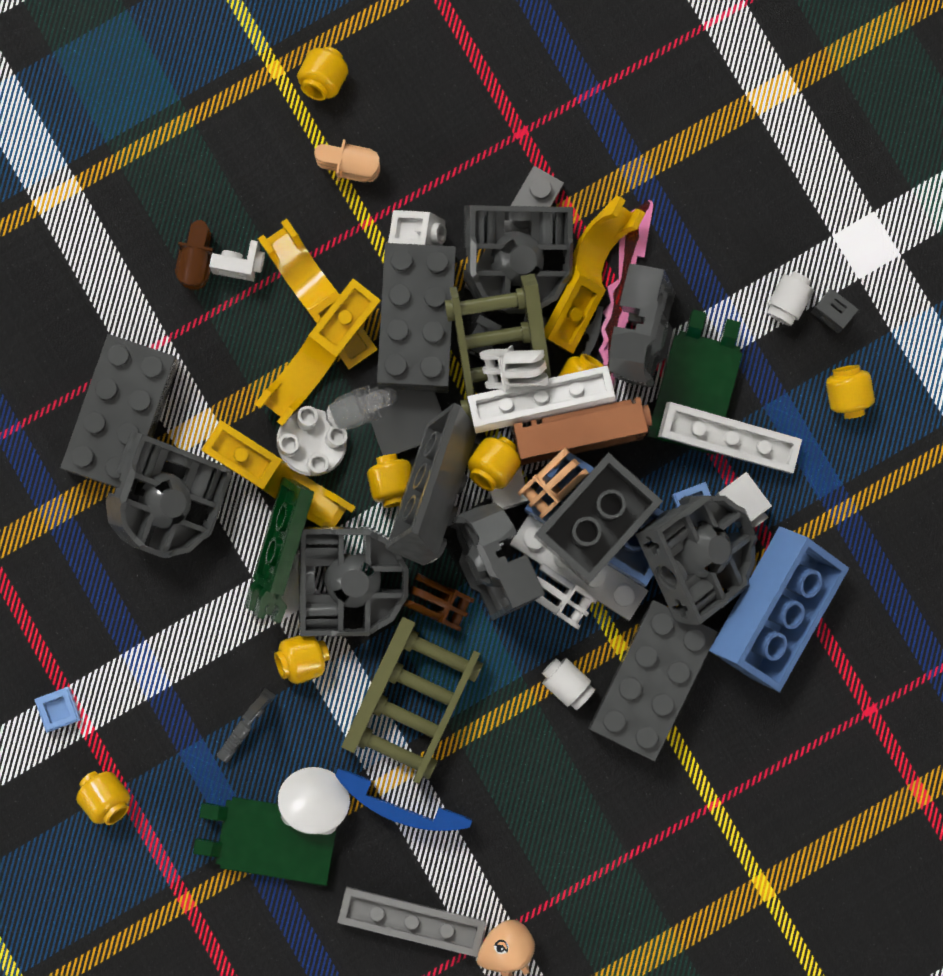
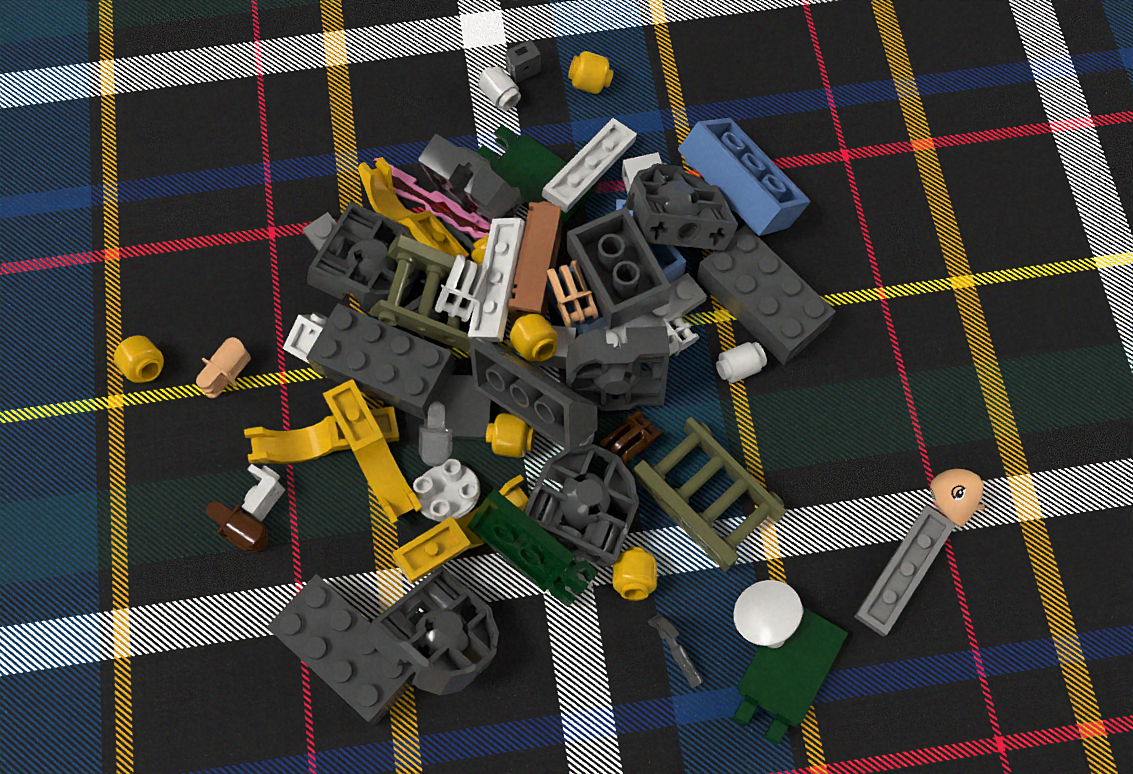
camera: 65 degrees left, 15 degrees down
(359, 786) = (821, 509): blue slope -> none

